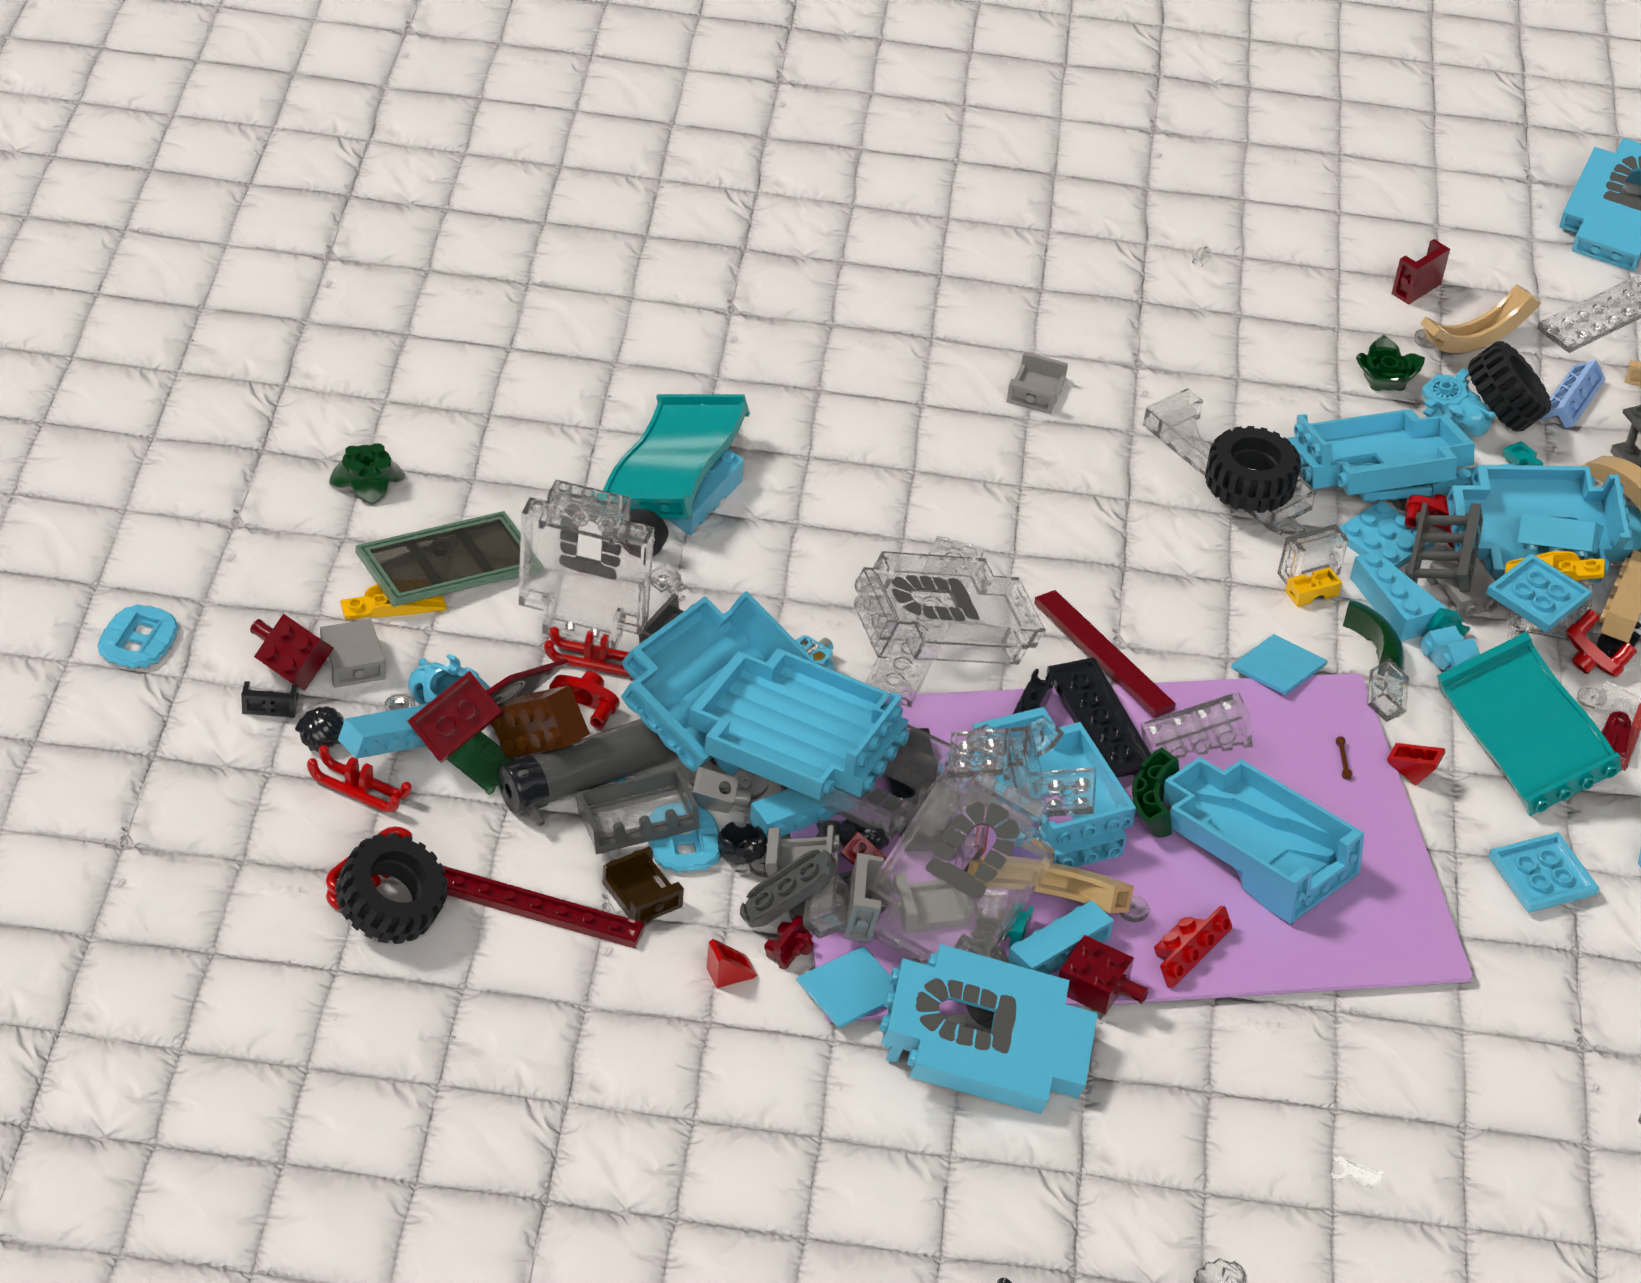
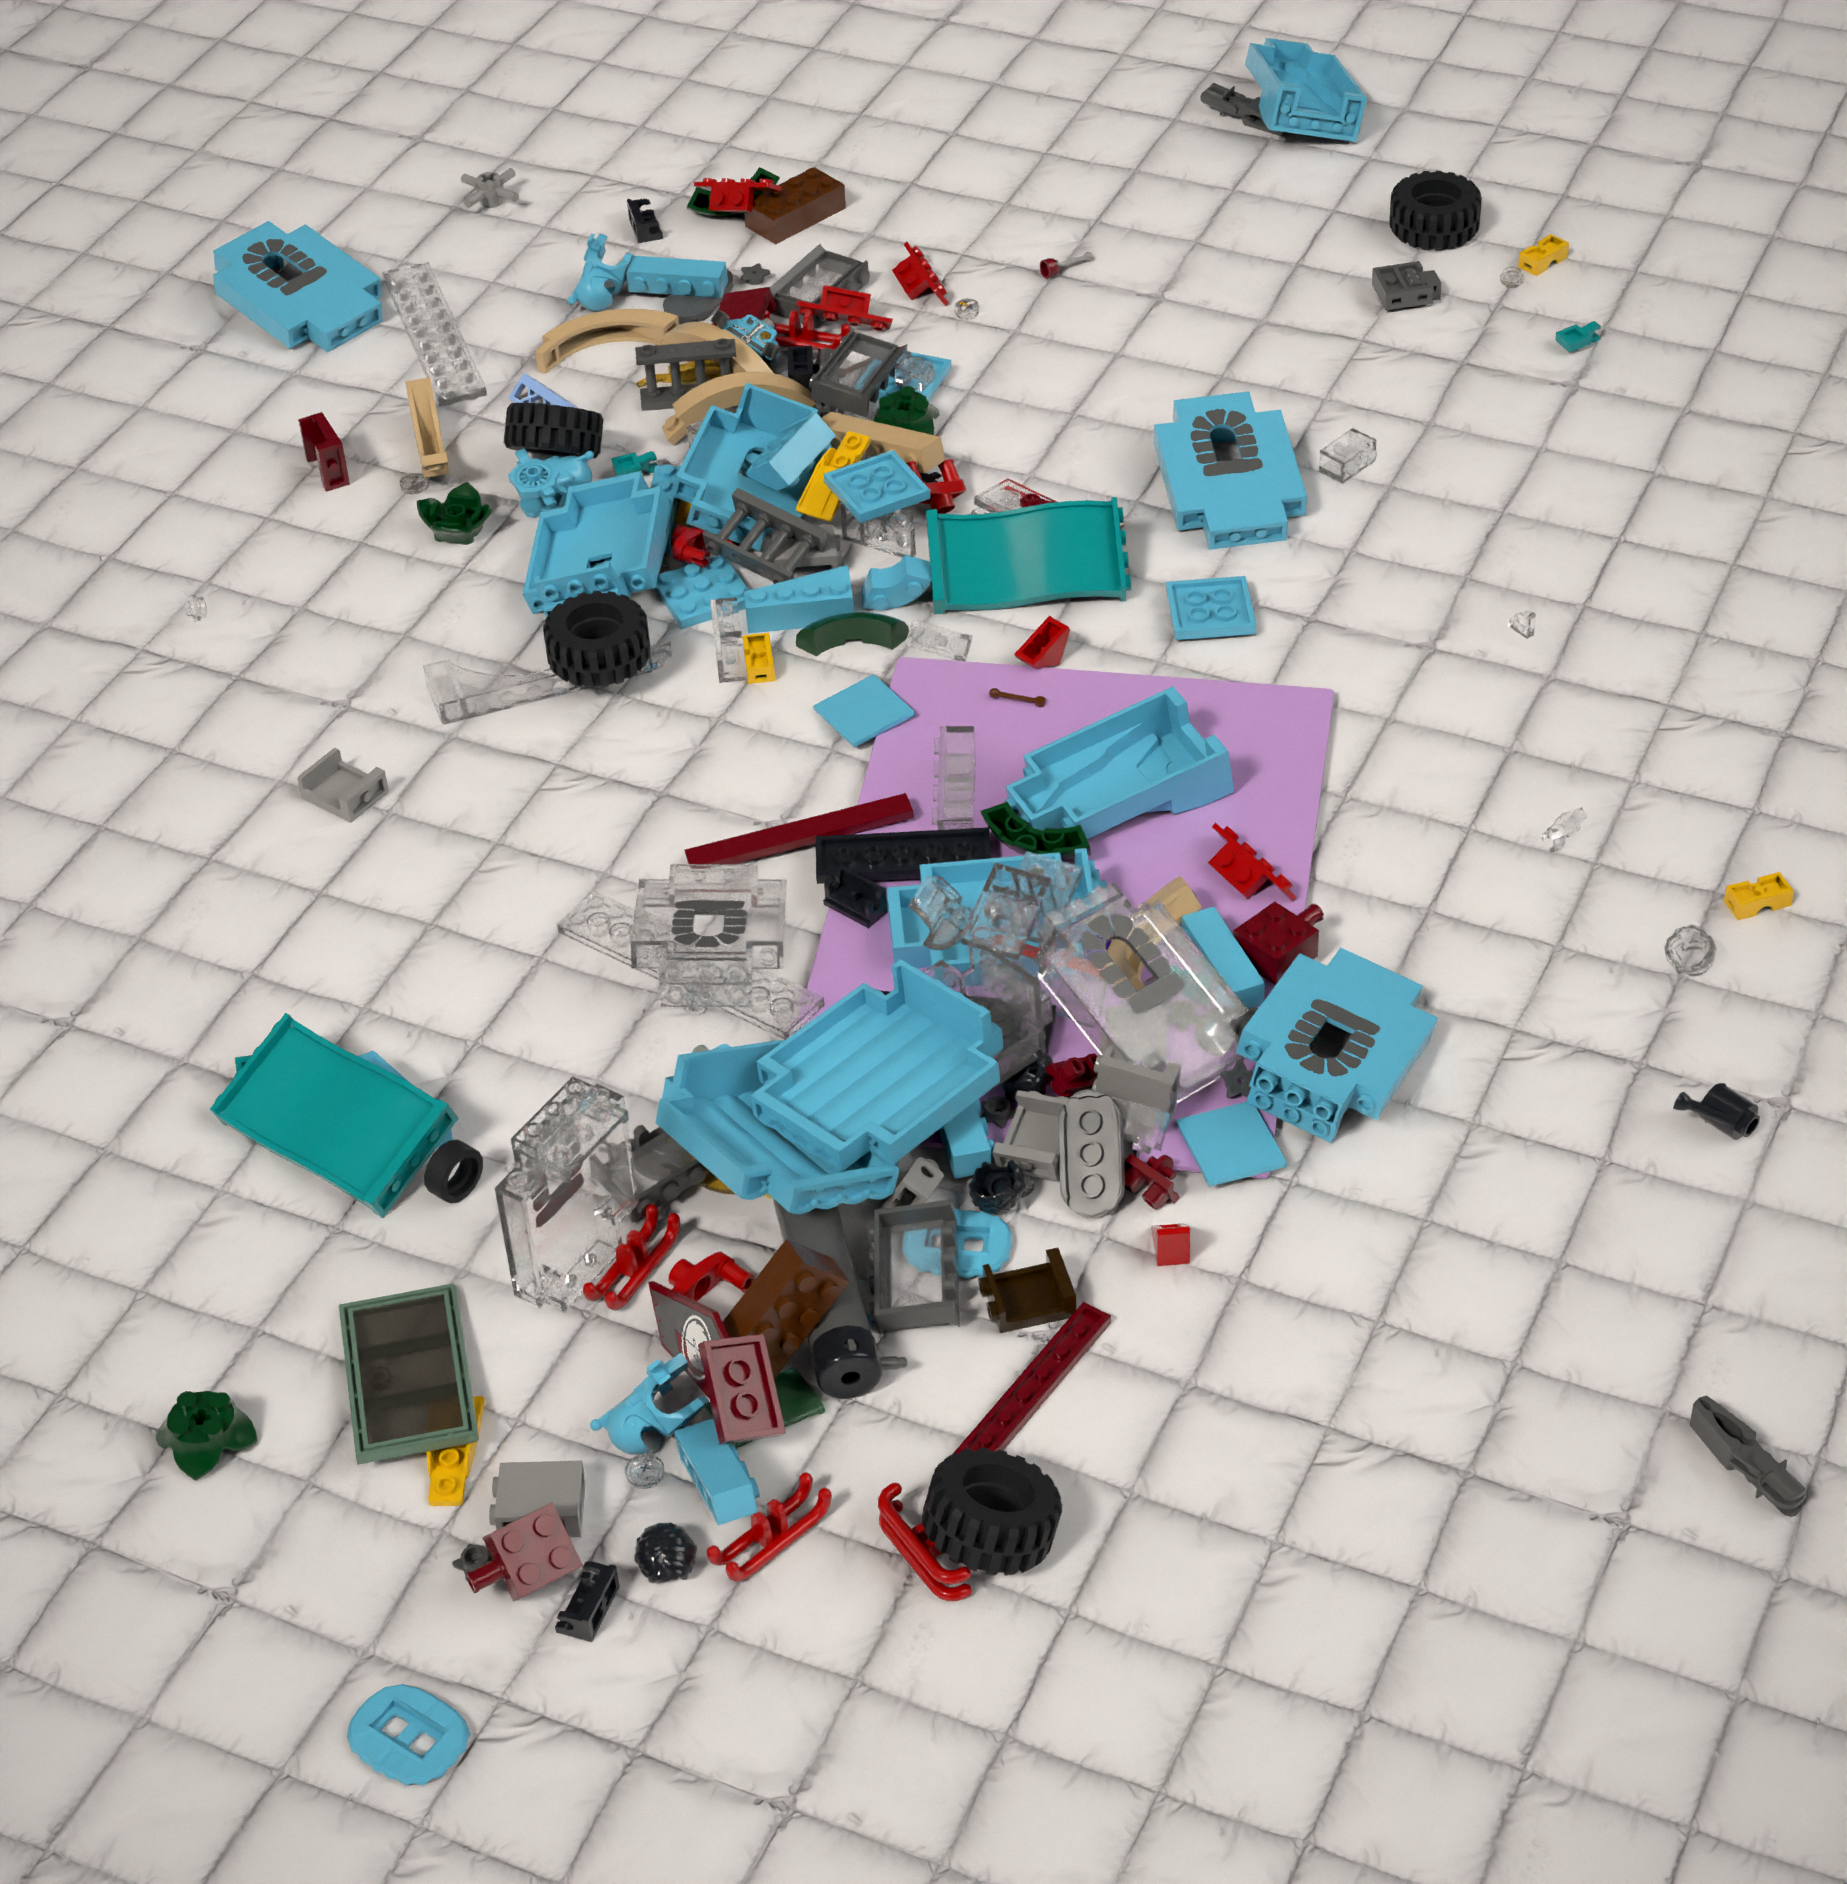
camera: 65 degrees left, 0 degrees up
(1447, 618) = (857, 577): teal plate -> none

